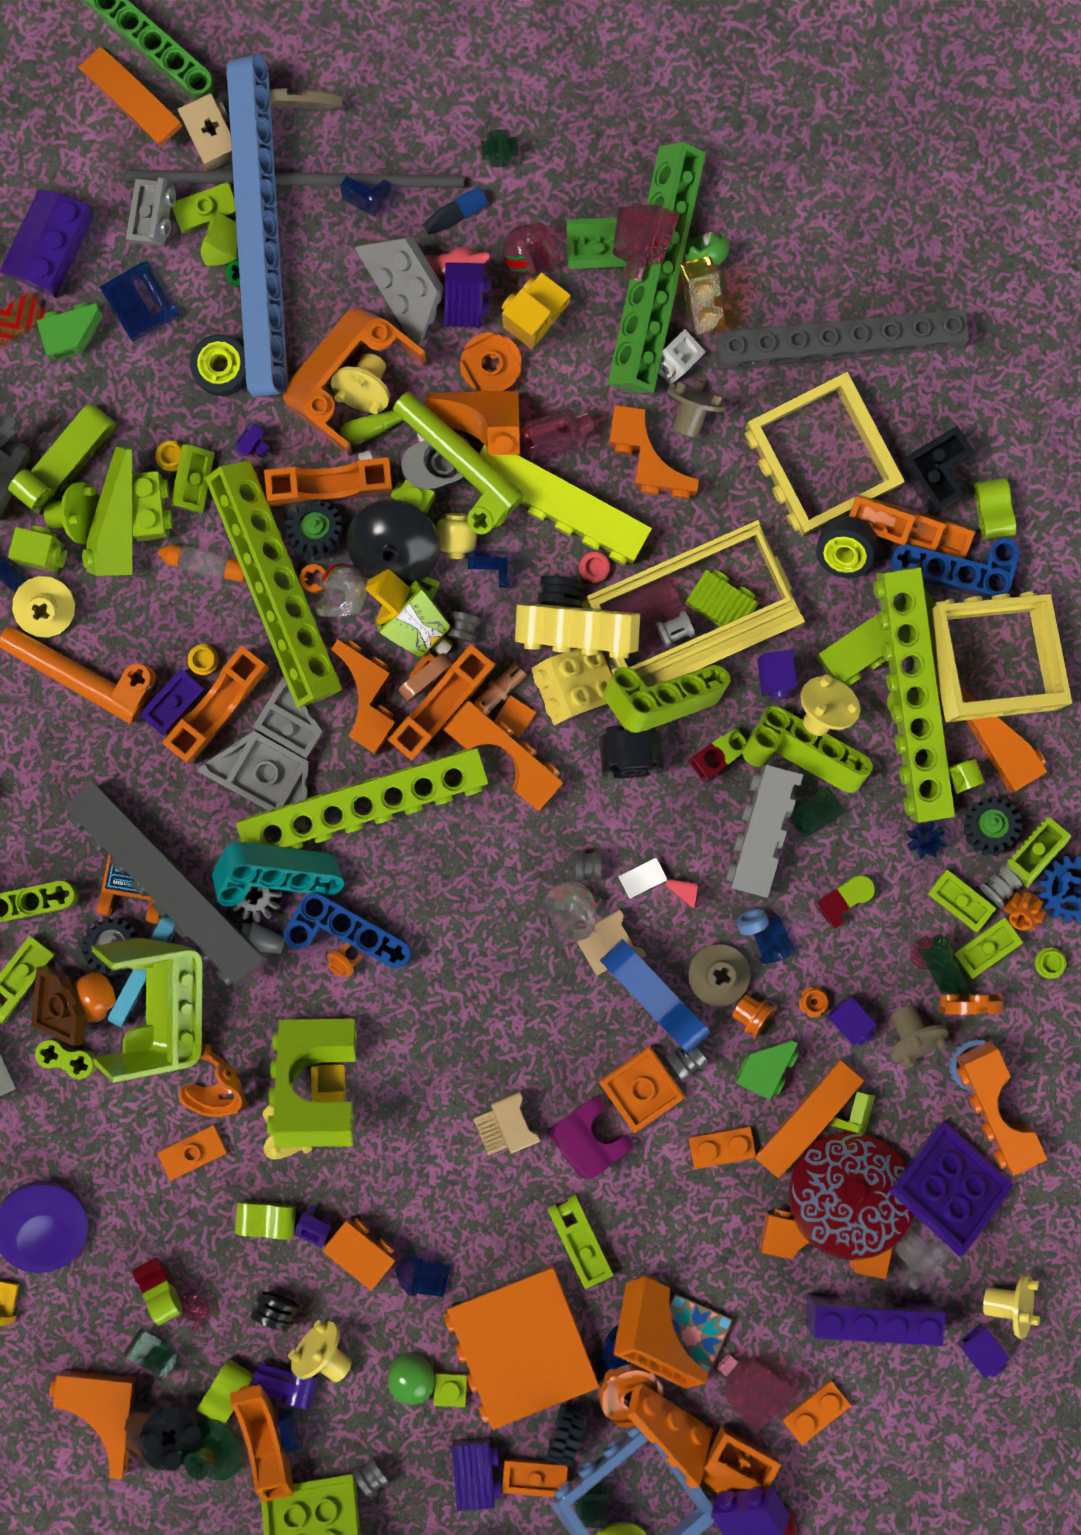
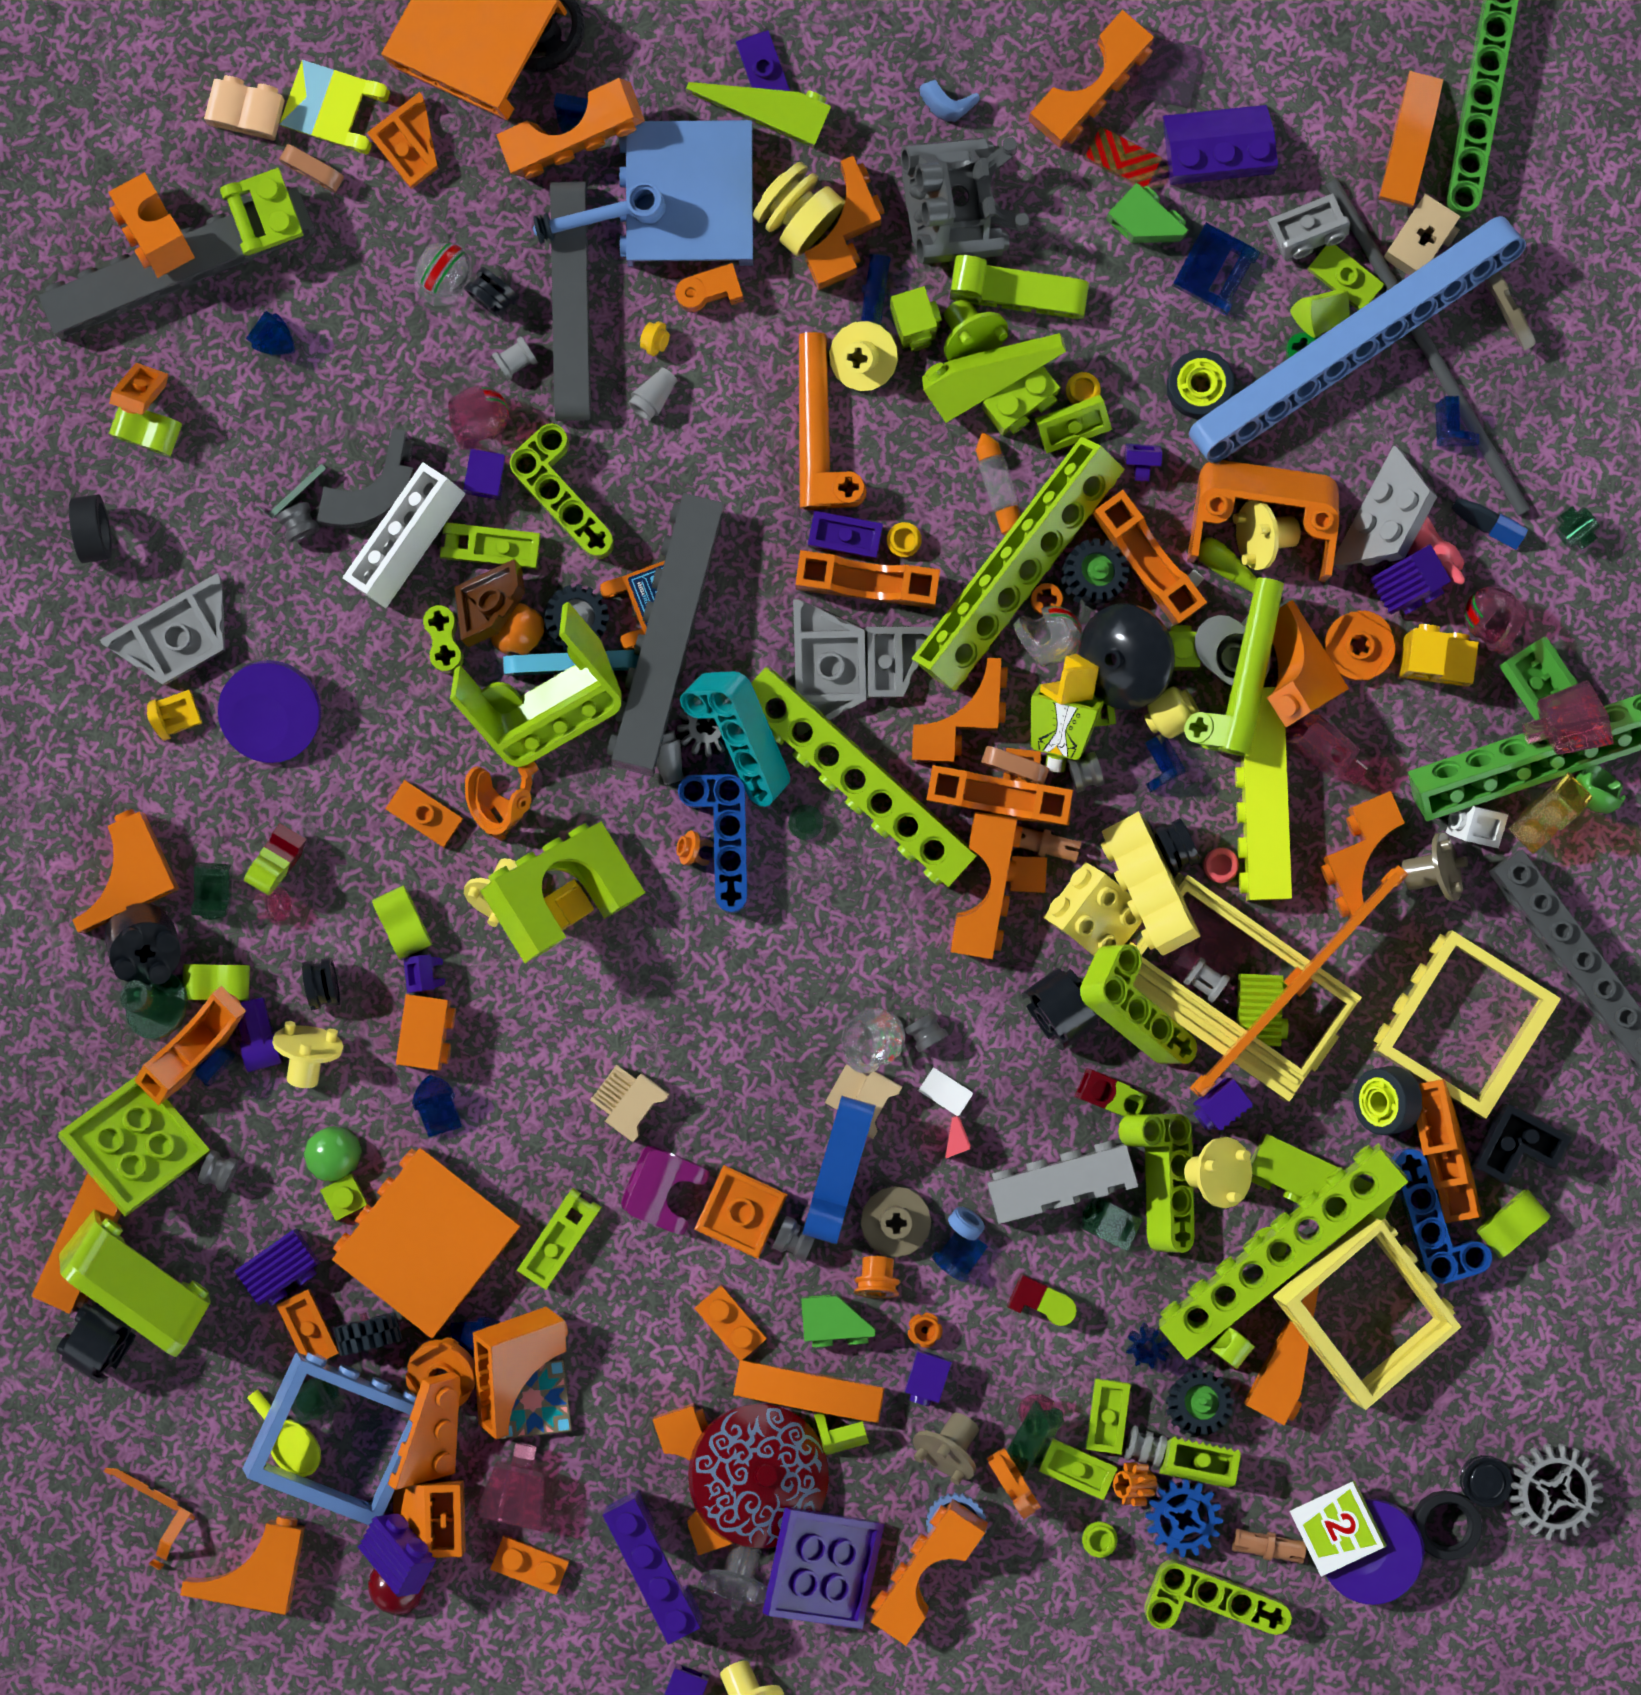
camera: 65 degrees right, 0 degrees up
(374, 862) = (805, 822): none -> clear green tile
(718, 560) = (1299, 981): none -> orange piece

